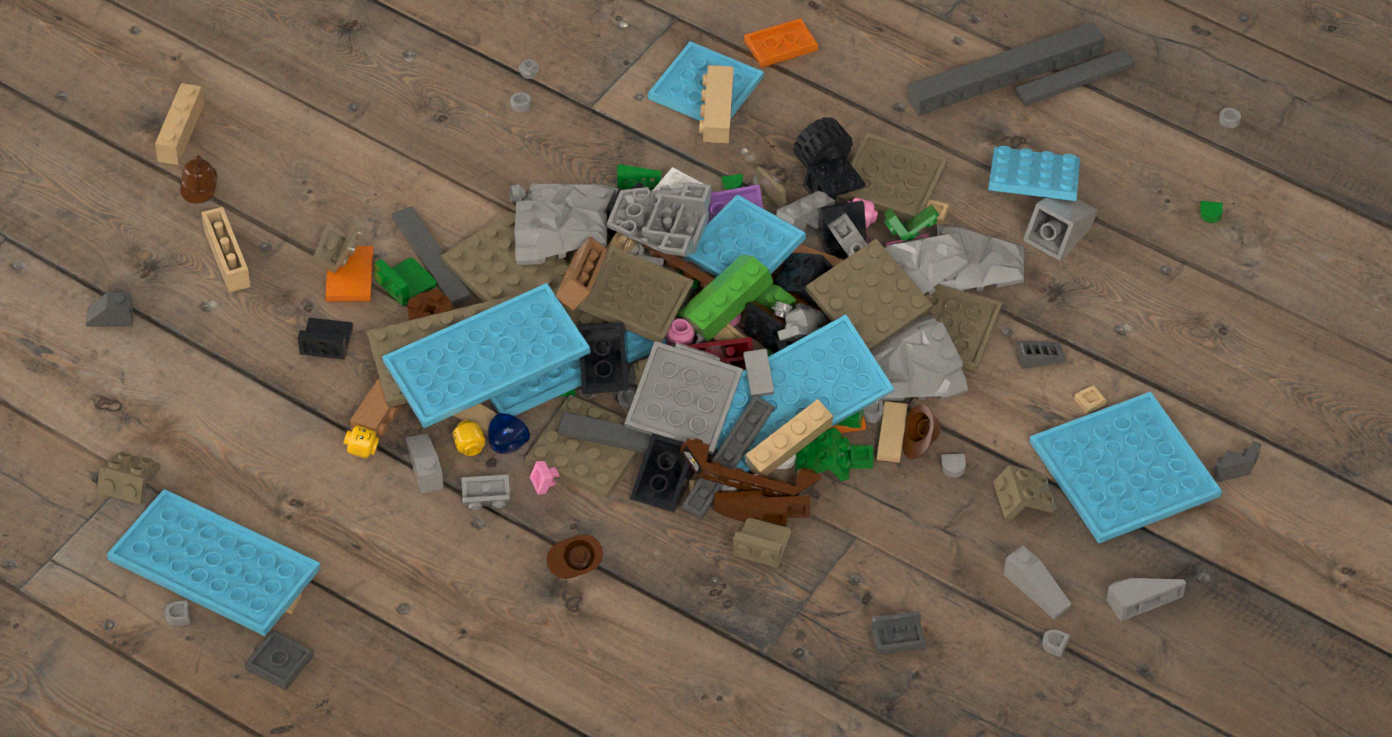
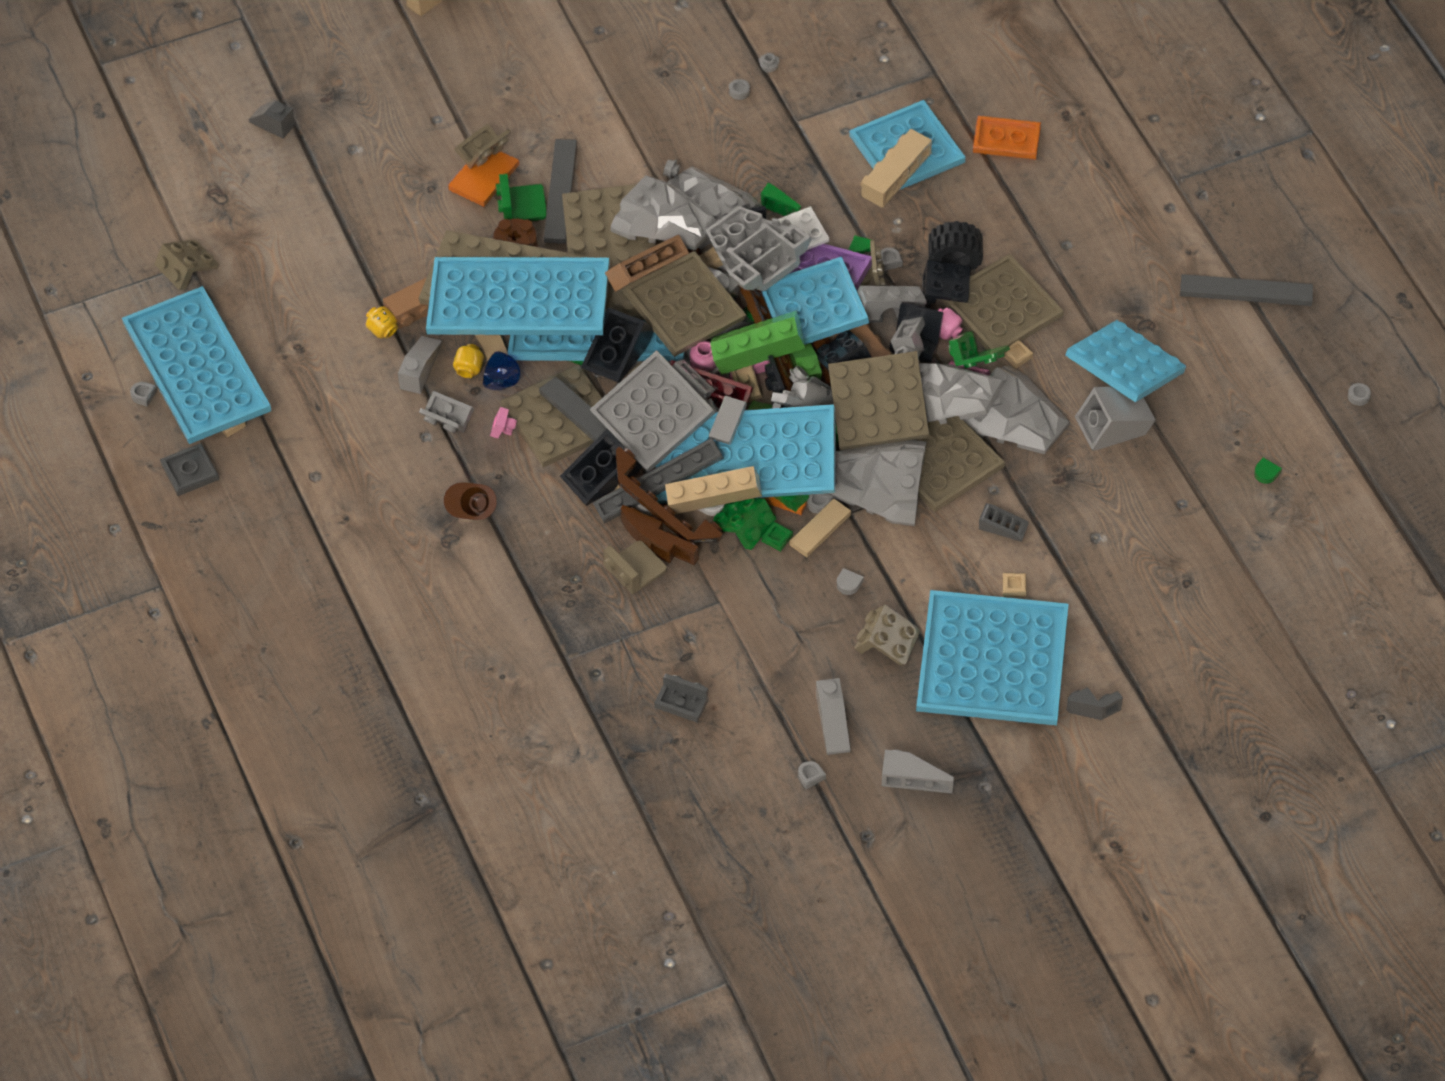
camera: 35 degrees right, 5 degrees up
(198, 181) = (424, 37): reddish brown piece -> none
(225, 249) = (396, 107): tan brick -> none
(325, 338) = (420, 221): black bracket -> none
(920, 431) = (841, 540): reddish brown piece -> none
(1005, 68) = (1187, 253): dark grey brick -> none

